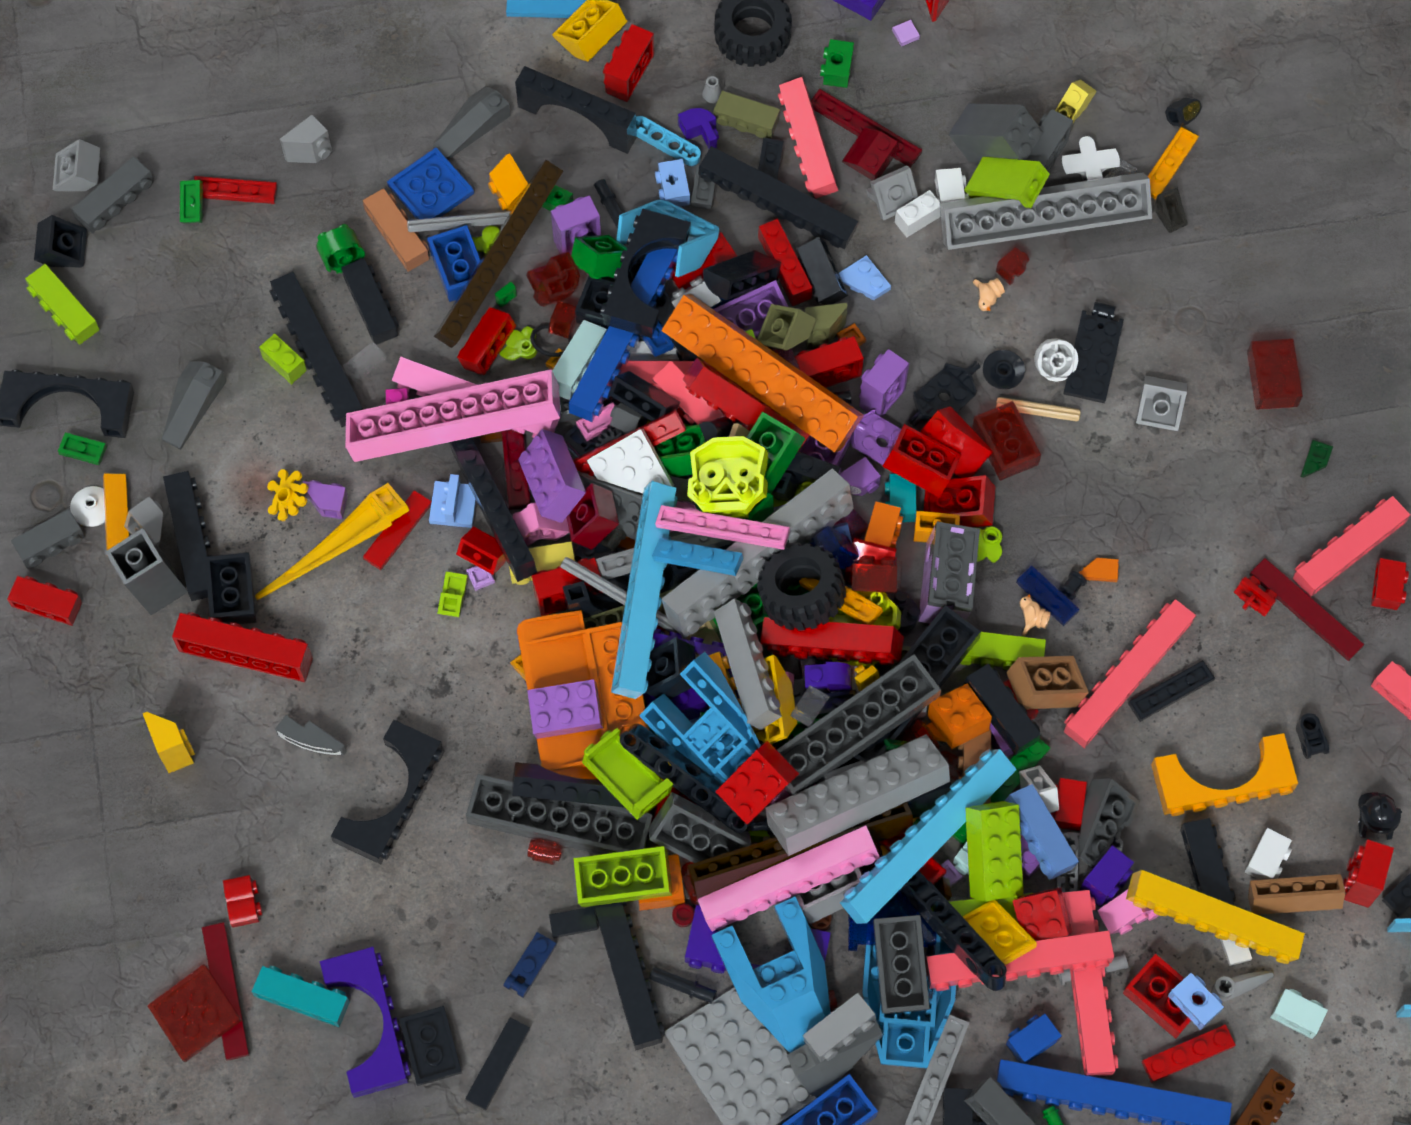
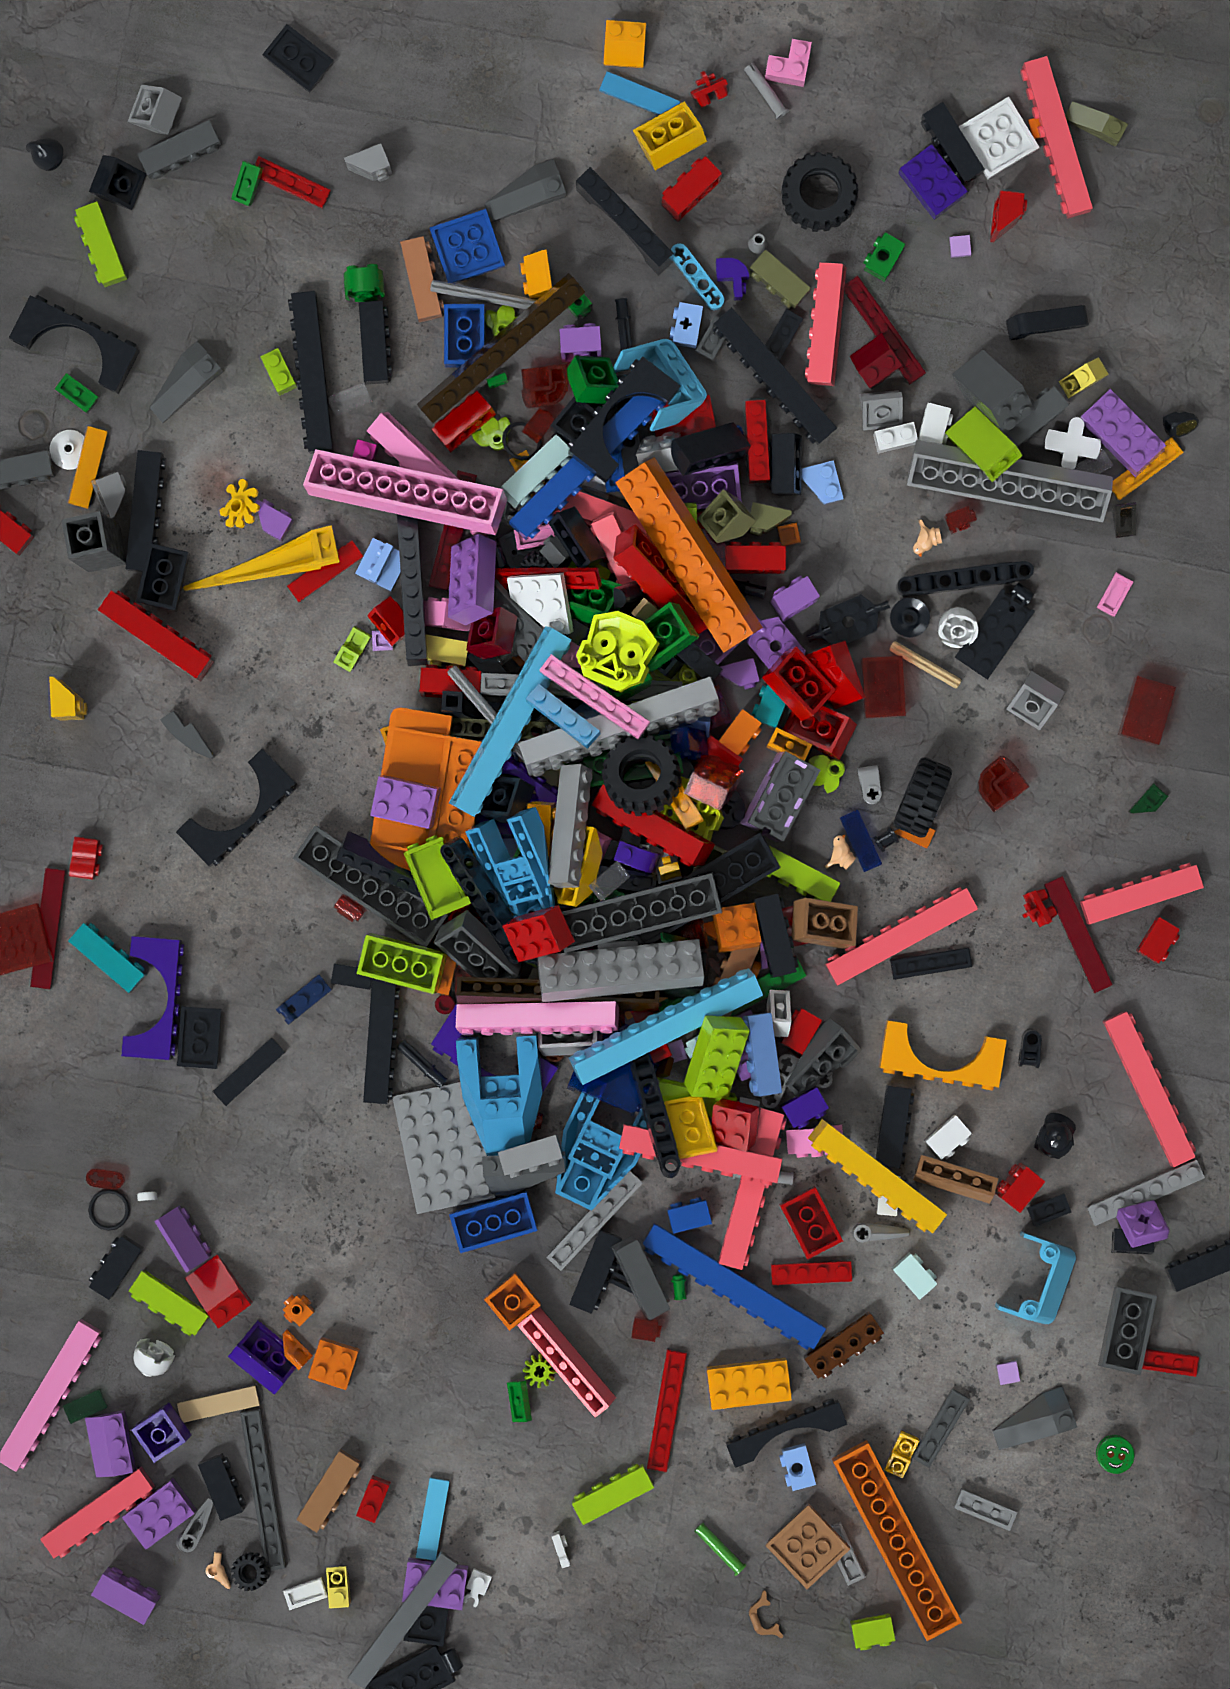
camera: 20 degrees right, 20 degrees up
(203, 79) = (298, 58): none -> black plate
(900, 964) = (600, 1124): dark grey brick -> none
(1014, 65) = (1046, 321): none -> black beam
(1032, 535) = (870, 780): none -> light grey piece
(1041, 316) = (965, 578): none -> black beam
(1093, 522) = (923, 797): none -> black tyre
(1135, 135) = (1123, 433): none -> medium lavender brick
(1164, 488) = (1001, 783): none -> clear red brick
(1193, 283) = (1115, 594): none -> bright pink tile
(1198, 1014) = (821, 1232): light blue brick -> none

